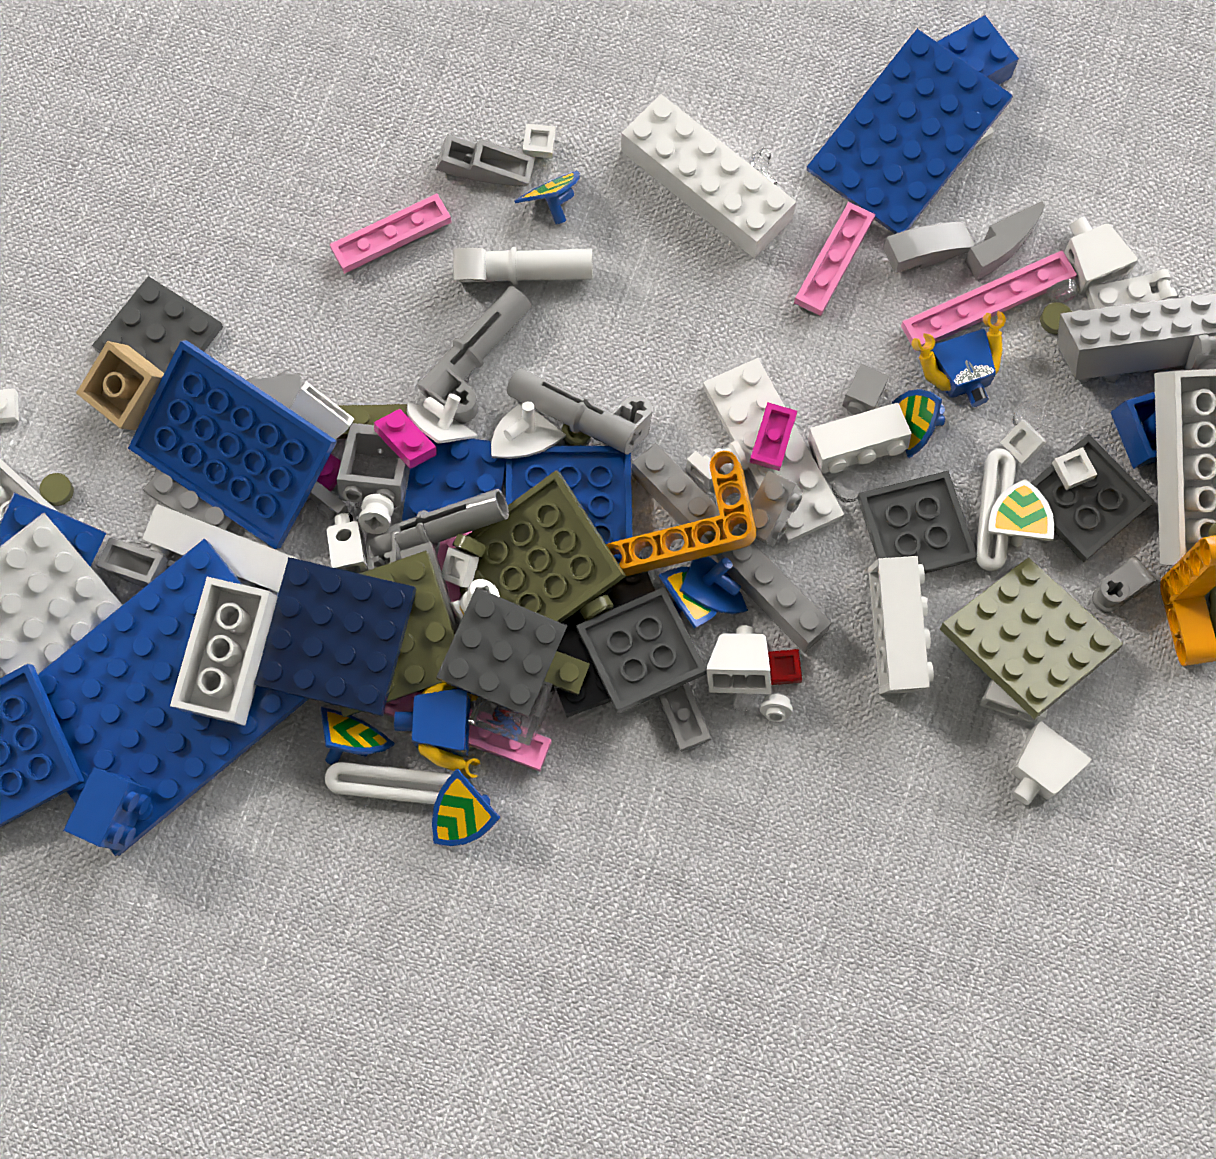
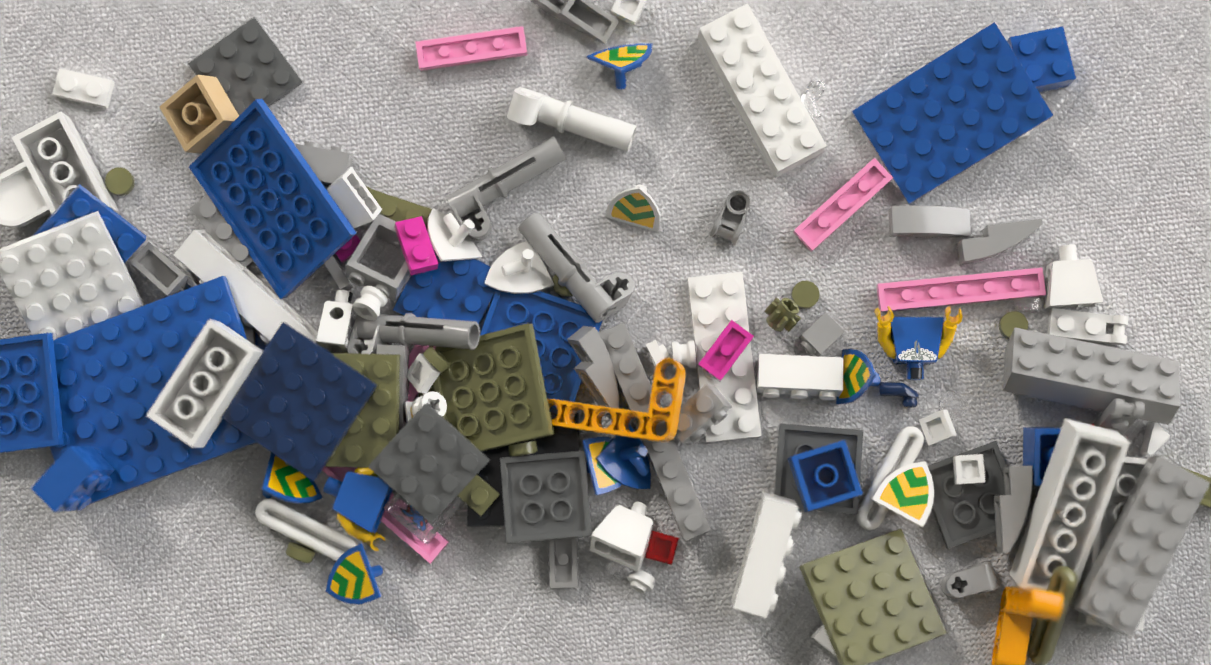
camera: 20 degrees right, 10 degrees up
(389, 809) = (300, 552): none -> olive tile
(622, 329) = (635, 208): none -> shield
(643, 498) = (596, 366): none -> light grey slope
(726, 310) = (731, 218): none -> light grey piece
(817, 384) = (782, 314): none -> olive gear
(831, 359) = (805, 294): none -> olive tile
(929, 523) = (825, 476): none -> blue brick
(971, 419) = (902, 390): none -> dark blue arm
(1134, 489) = (1013, 506): none -> light grey slope

